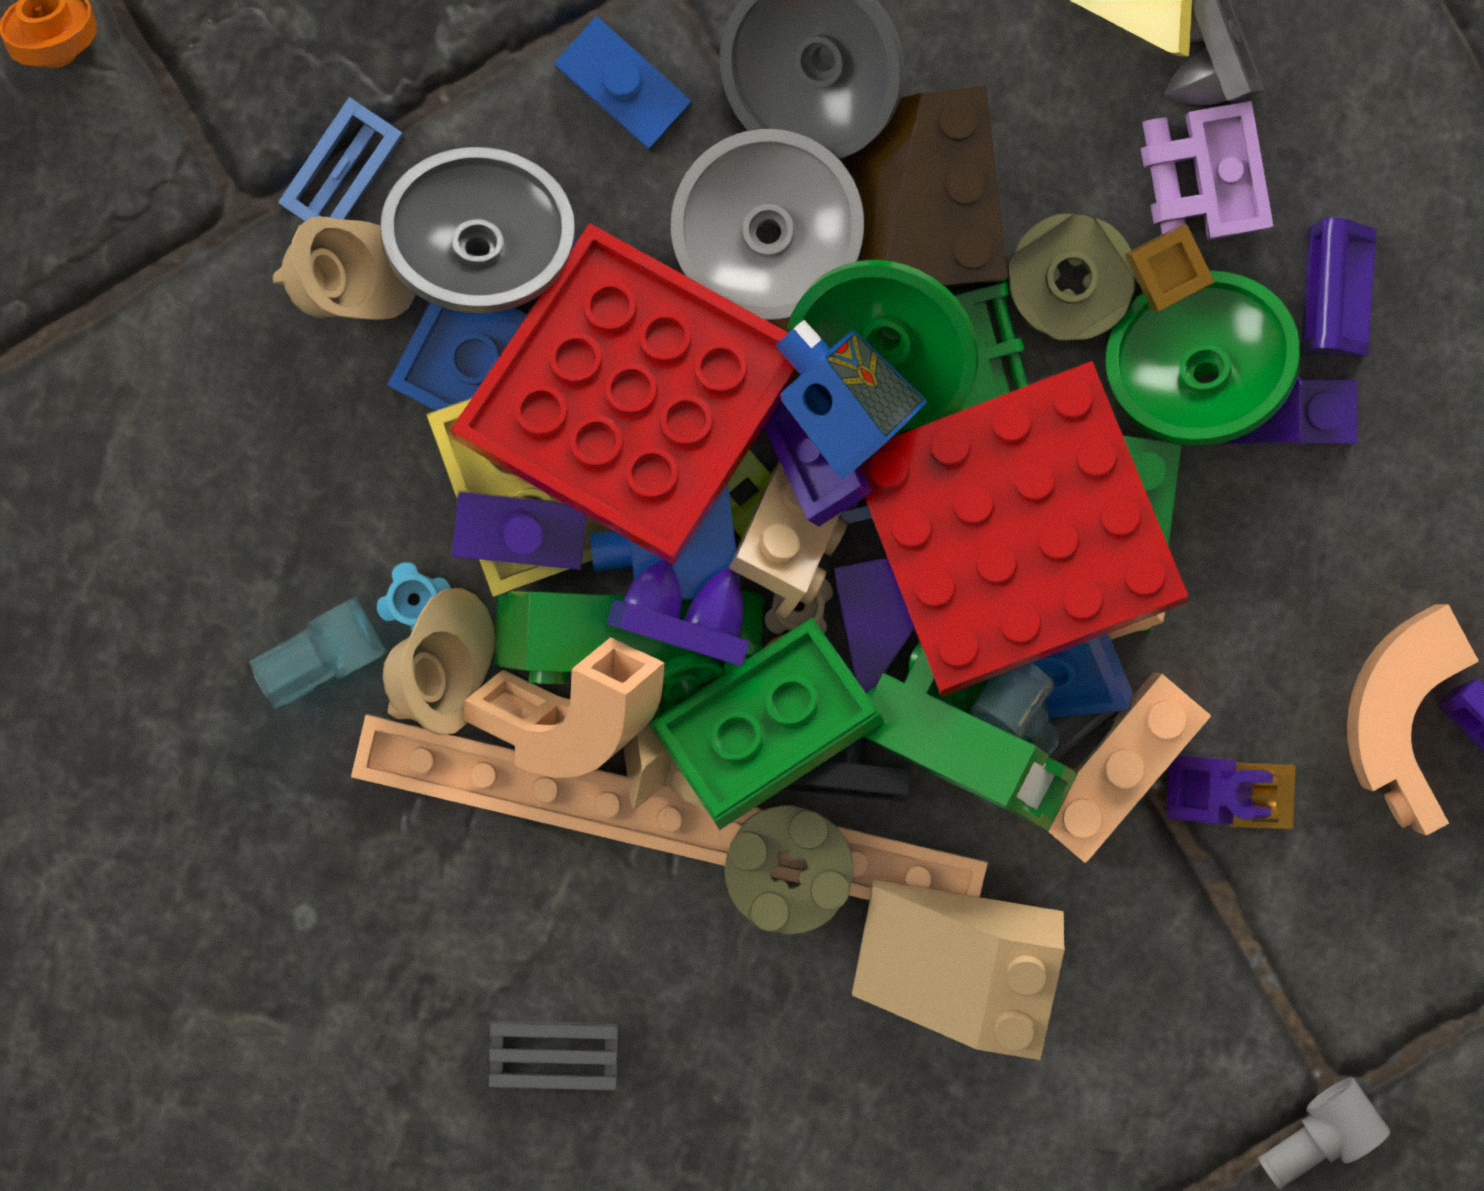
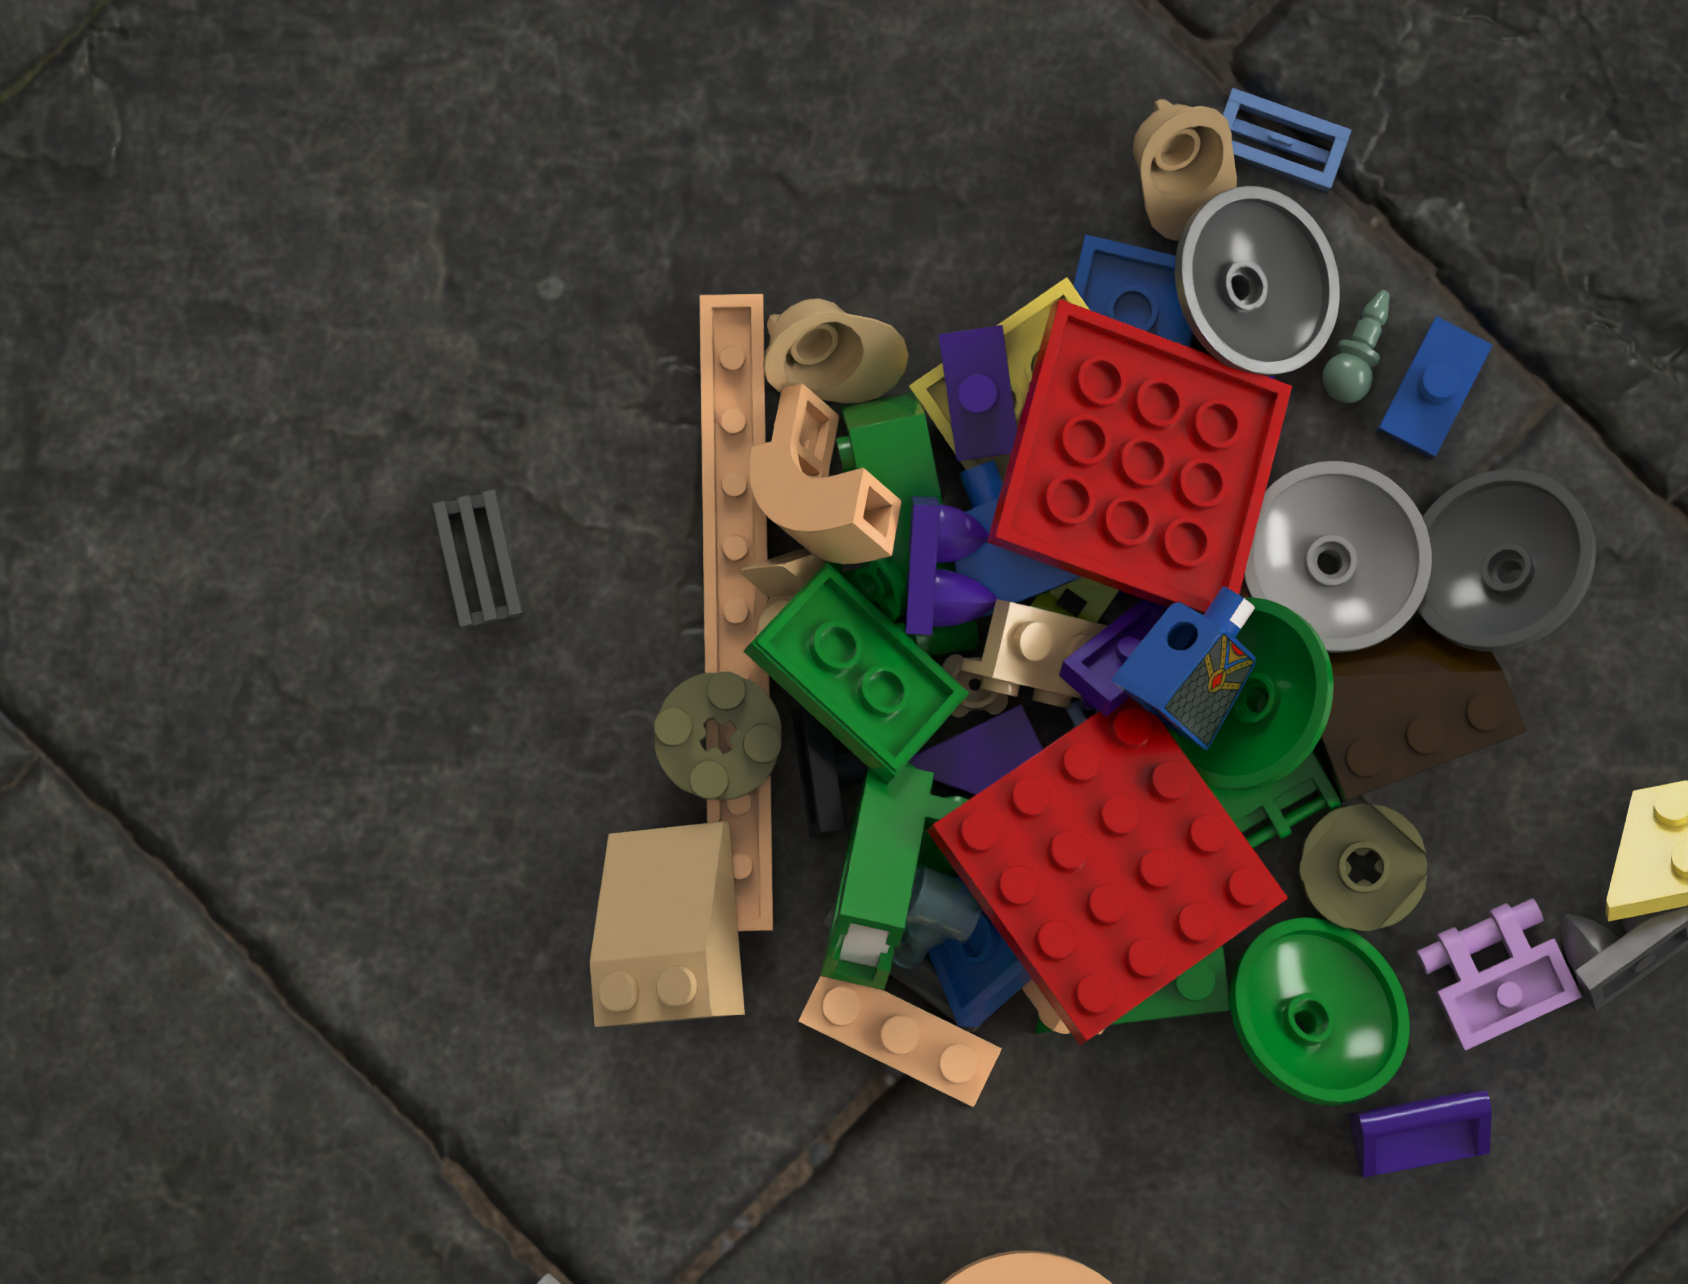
camera: 70 degrees right, 5 degrees down
(329, 648) = (820, 247): clear light blue piece -> none
(408, 581) = (899, 301): medium azure plate -> none
(589, 163) = (1349, 373): none -> sand green bar
(1169, 268) = (1398, 957): pearl gold tile -> none
(1212, 790) = (900, 1132): dark purple plate -> none
(1274, 795) = (905, 1184): pearl gold tile -> none
(1311, 415) = (1289, 1131): dark purple slope -> none

